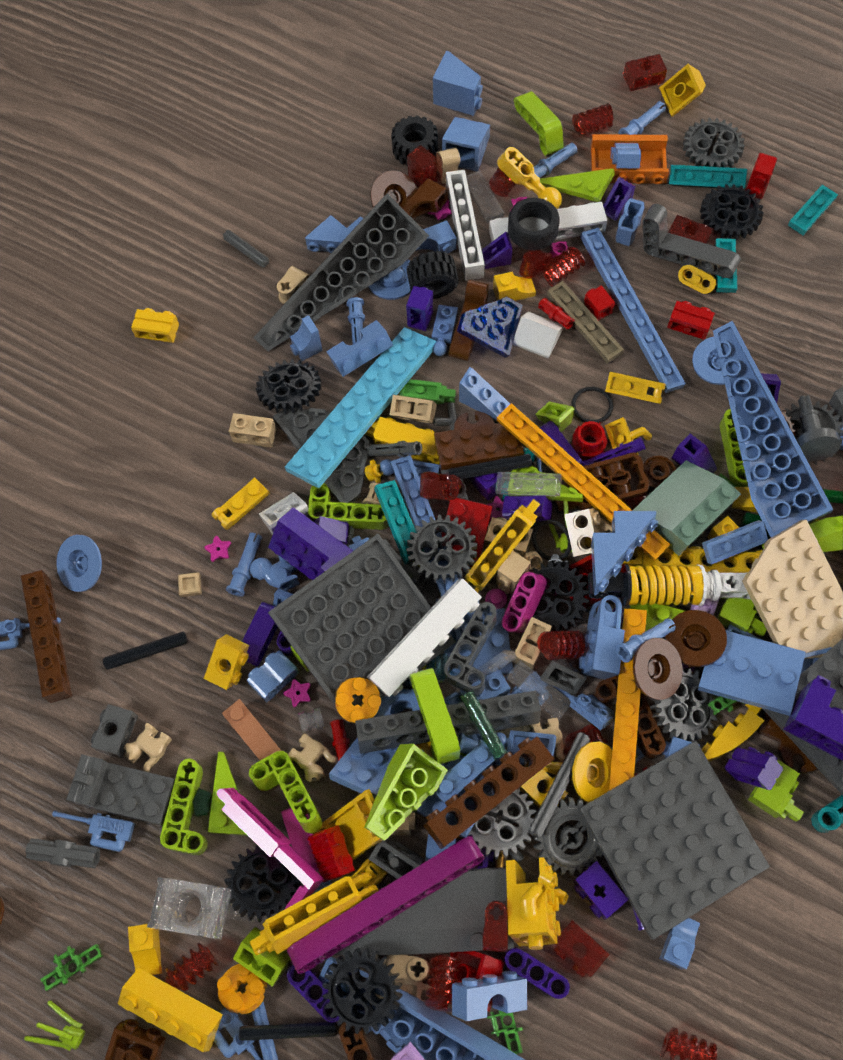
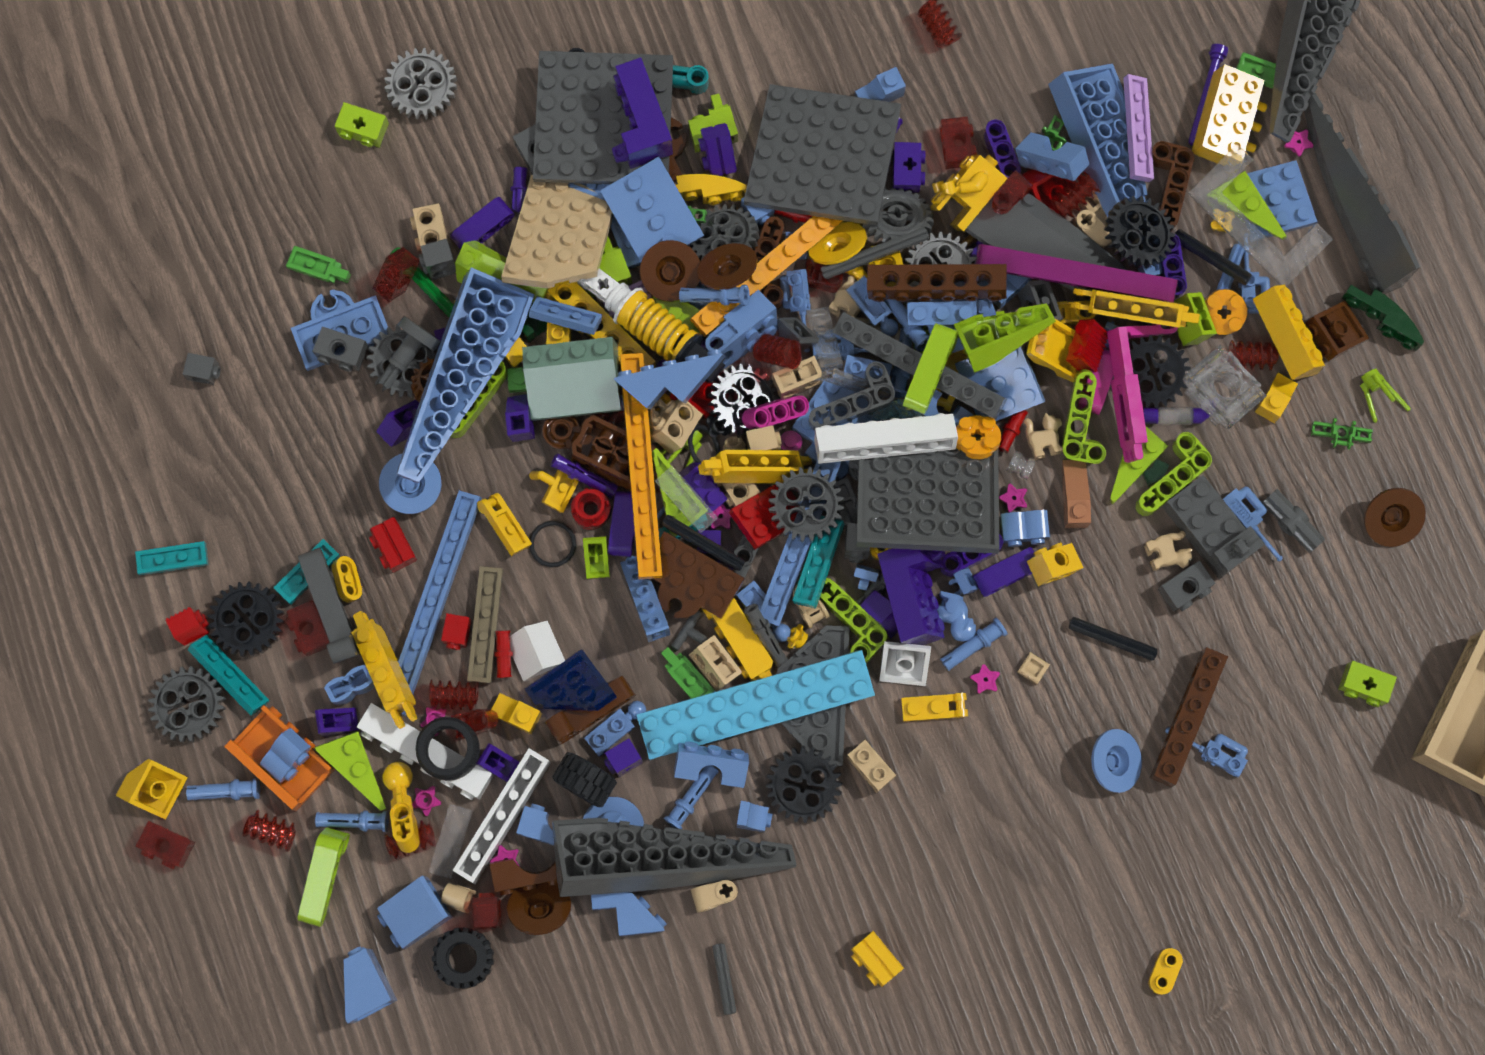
camera: 145 degrees left, 10 degrees up
(222, 860) = (1174, 415): none -> piece
(438, 486) = (761, 559): clear red piece -> none
(483, 724) = (898, 338): clear green pin -> none
(618, 242) = (384, 669): none -> yellow hinge

